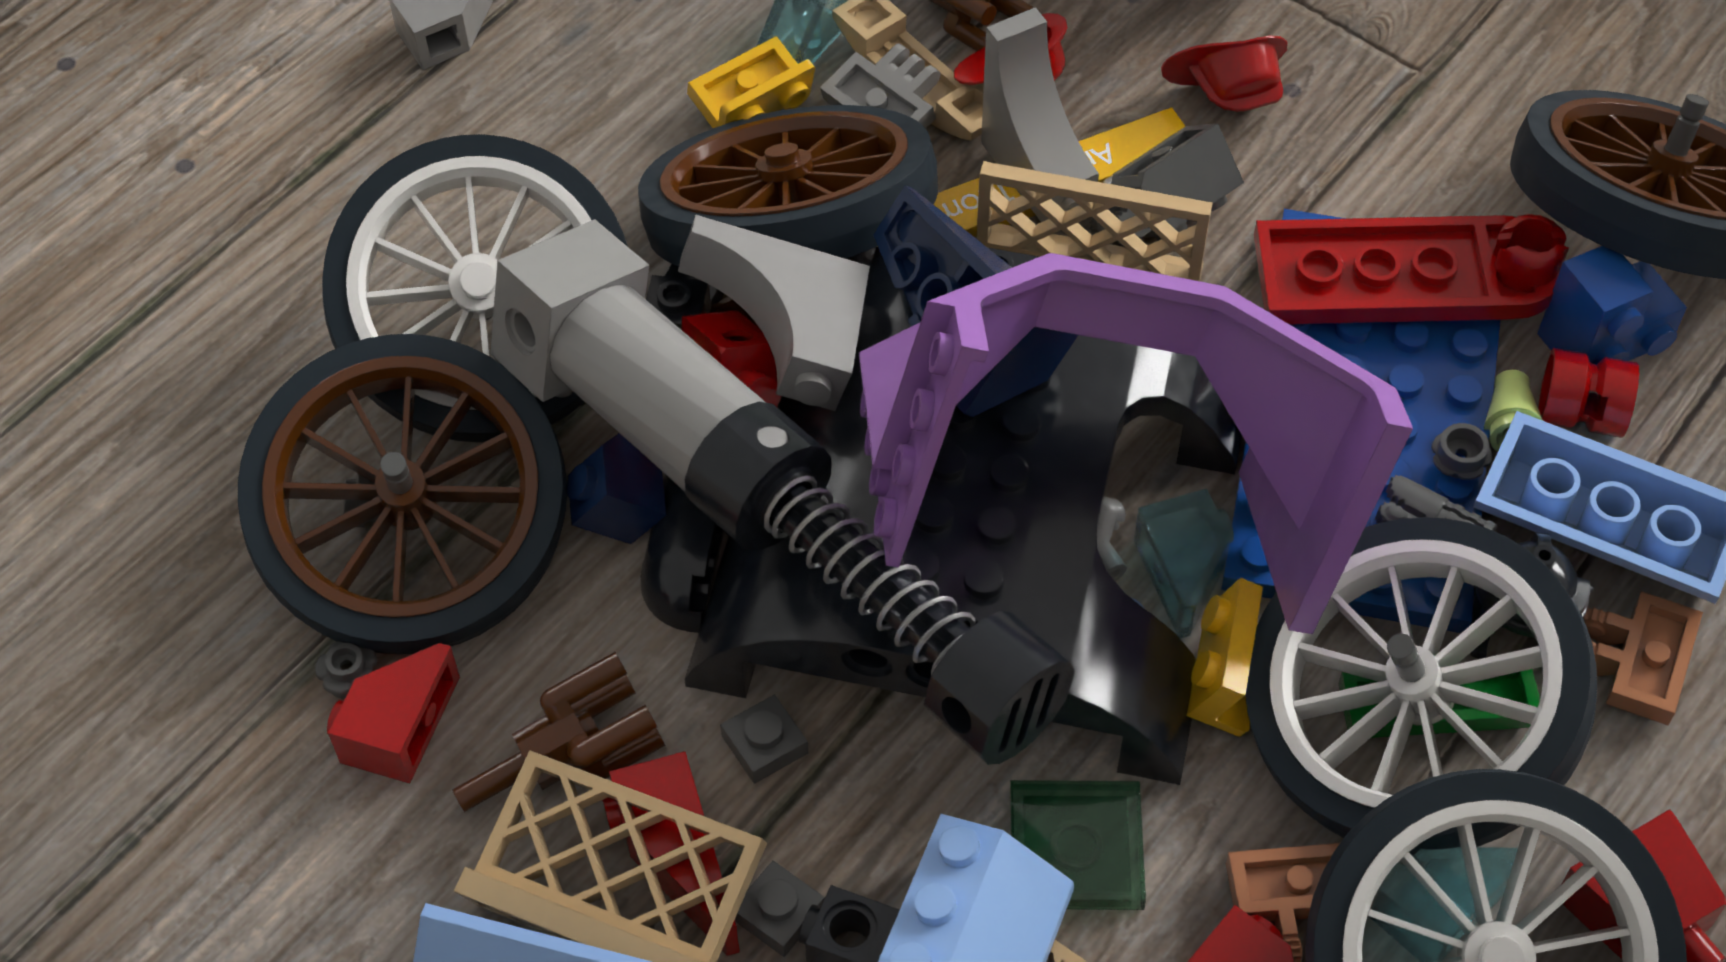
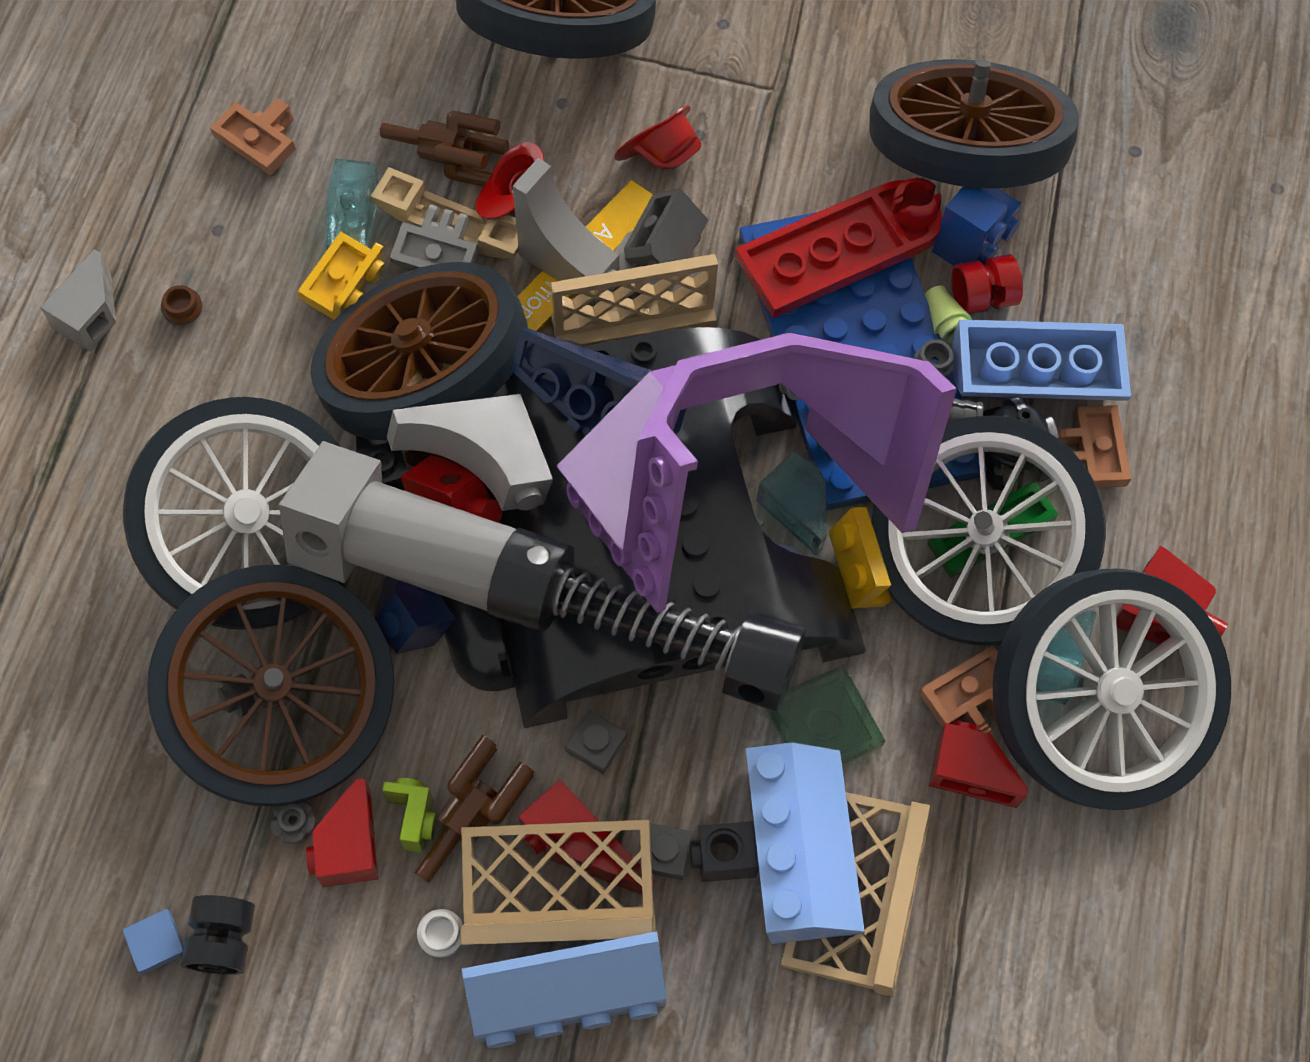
camera: 30 degrees left, 10 degrees up
(112, 733) = (154, 941): none -> medium blue tile
(195, 733) = (220, 918): none -> black wheel
(438, 873) = (440, 933): none -> white plate
(489, 727) = (418, 821): none -> lime bracket
(550, 54) = (181, 305): none -> reddish brown plate

